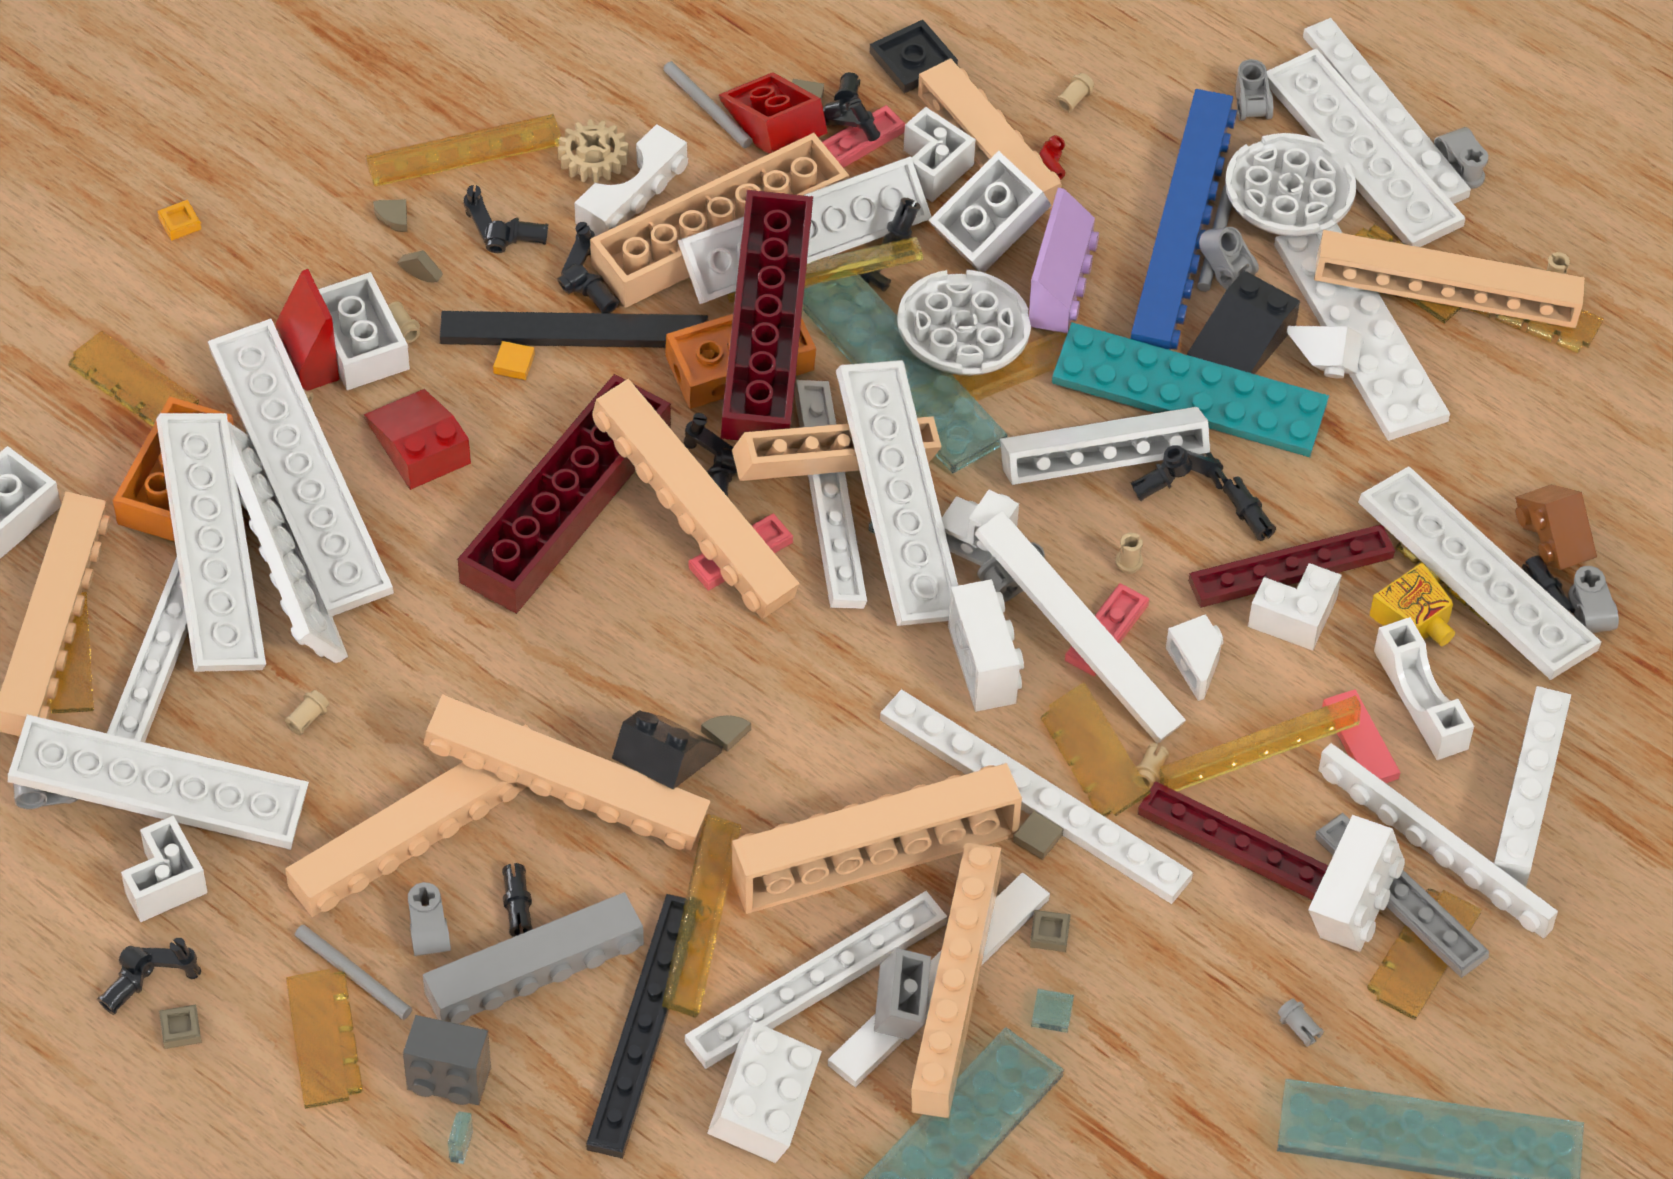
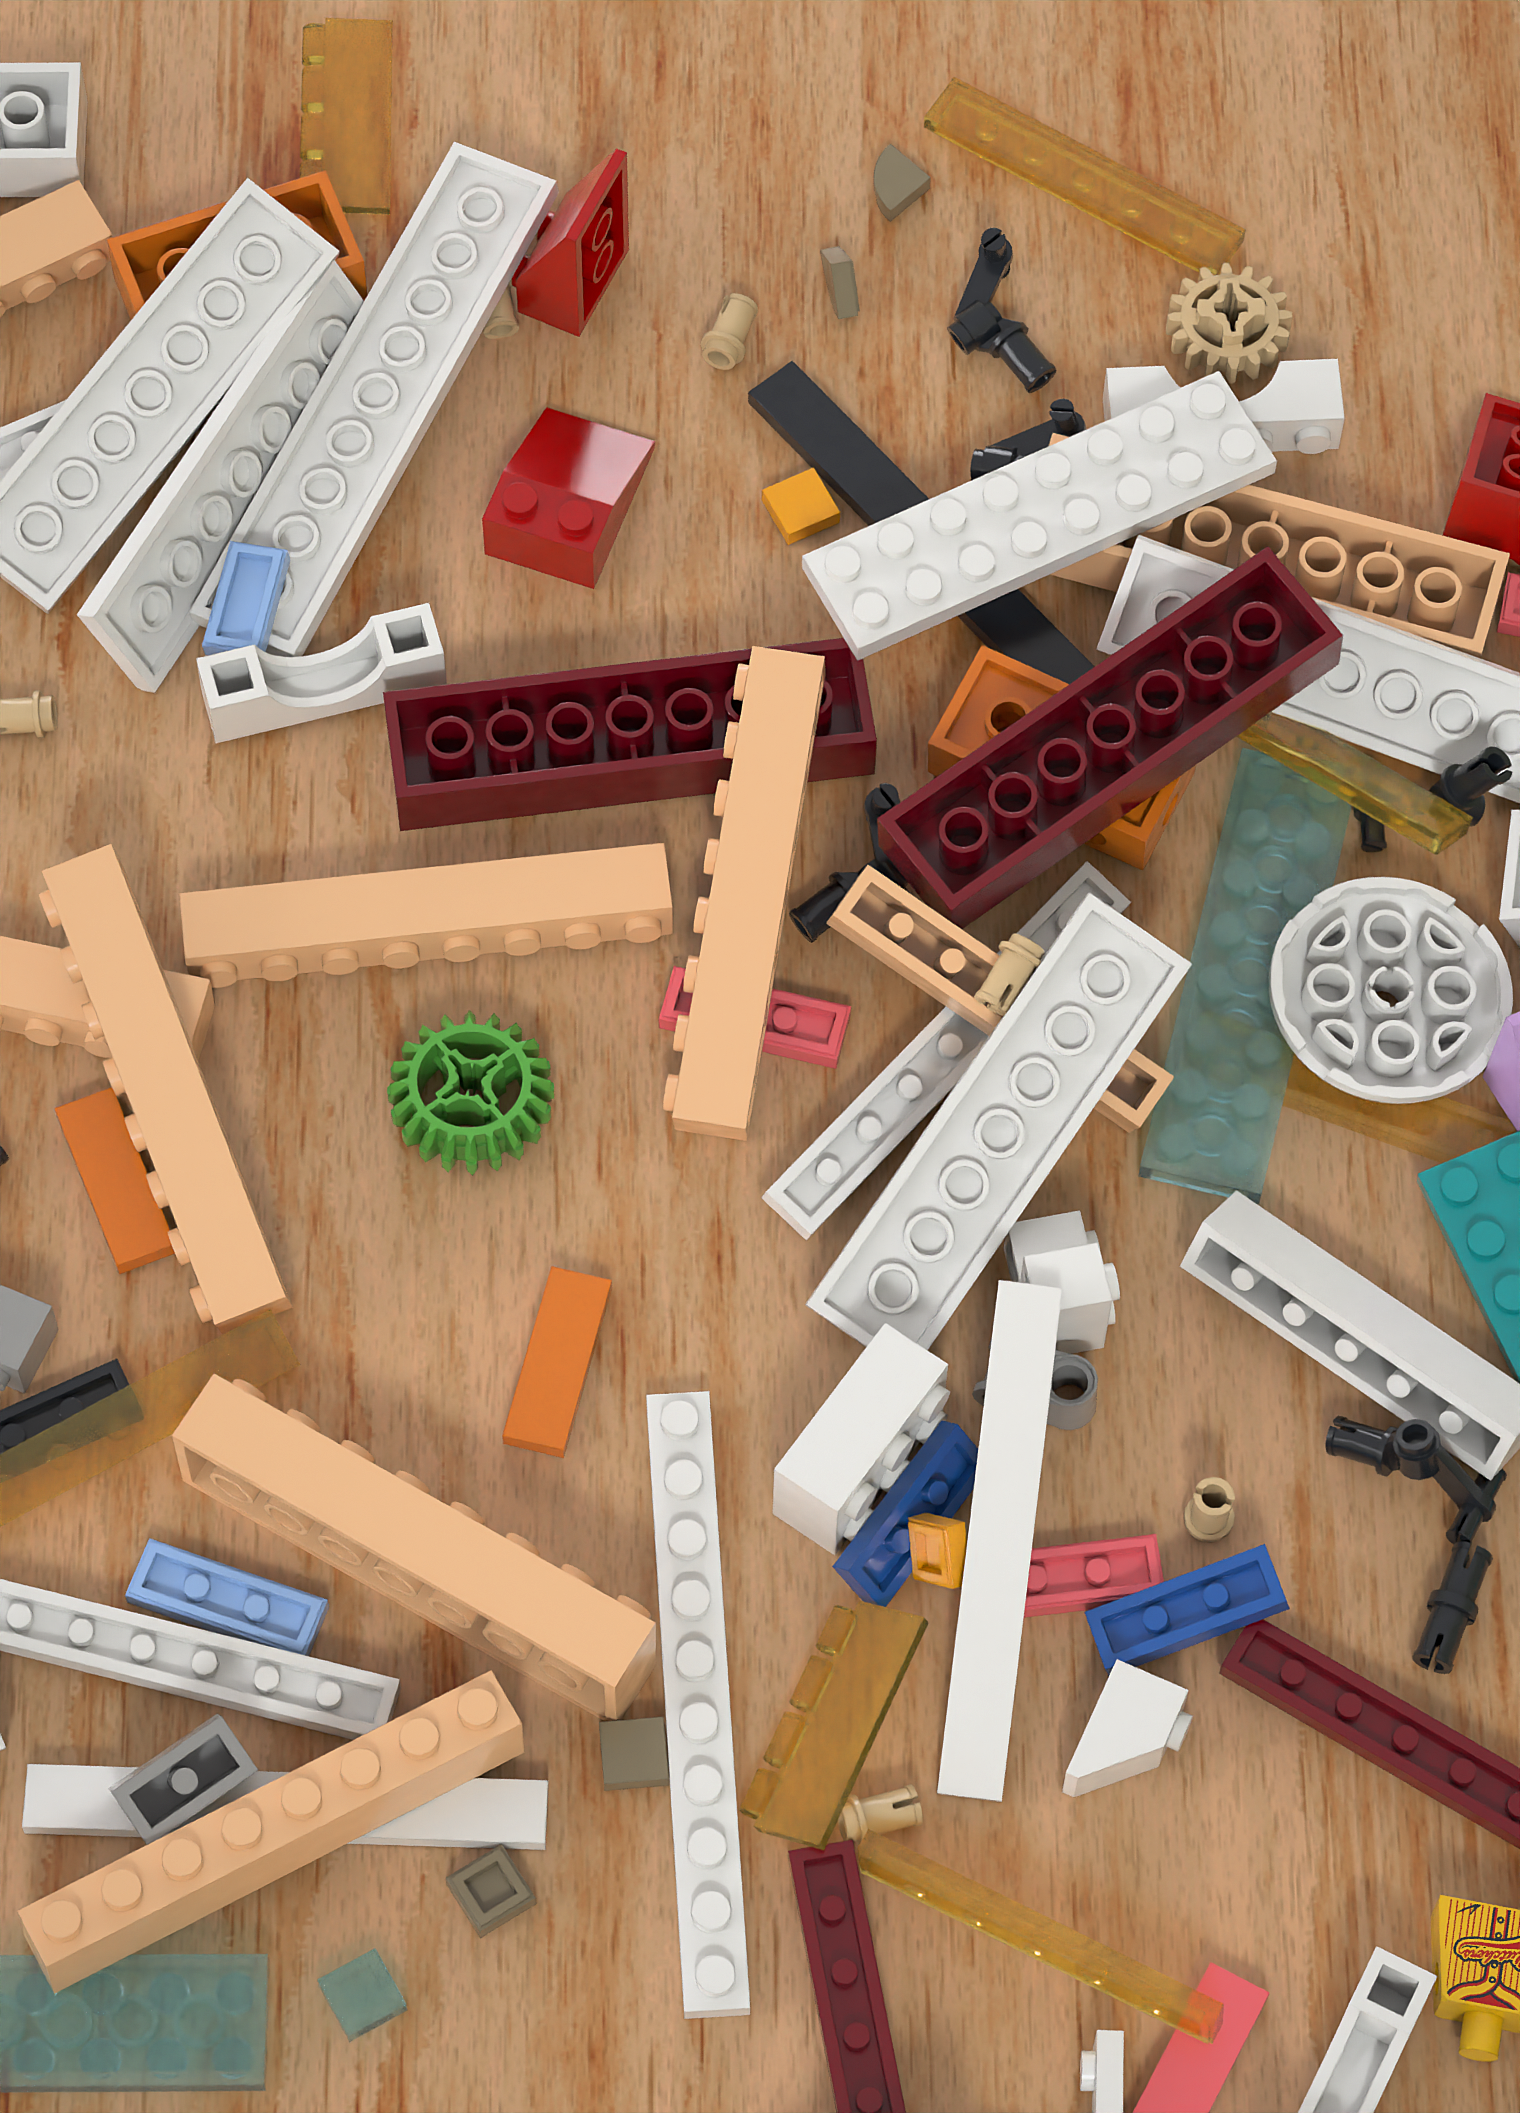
camera: 50 degrees right, 10 degrees up
(349, 583) = (246, 598): none -> light blue tile
(364, 332) = (653, 294): white brick -> none
(433, 555) = (263, 692): none -> white arch
(576, 623) = (427, 914): none -> light nougat brick
(577, 836) = (115, 1180): none -> orange tile
(626, 271) = (1038, 515): none -> white plate
(662, 748) = (321, 1173): black slope -> none
(696, 676) = (502, 1062): none -> bright green gear
(708, 104) = (1457, 394): light grey bar -> none
(726, 730) = (446, 1227): dark tan tile -> none
(818, 934) = (225, 1599): none -> light blue tile
(831, 735) = (557, 1362): none -> orange tile
(840, 426) = (1010, 973): none -> tan pin
(1036, 675) = (932, 1483): none -> blue plate
(1057, 657) = (937, 1549): none -> light orange tile
(1166, 593) = (1187, 1609): none -> blue plate
(1296, 613) = (1329, 1819): white brick -> none

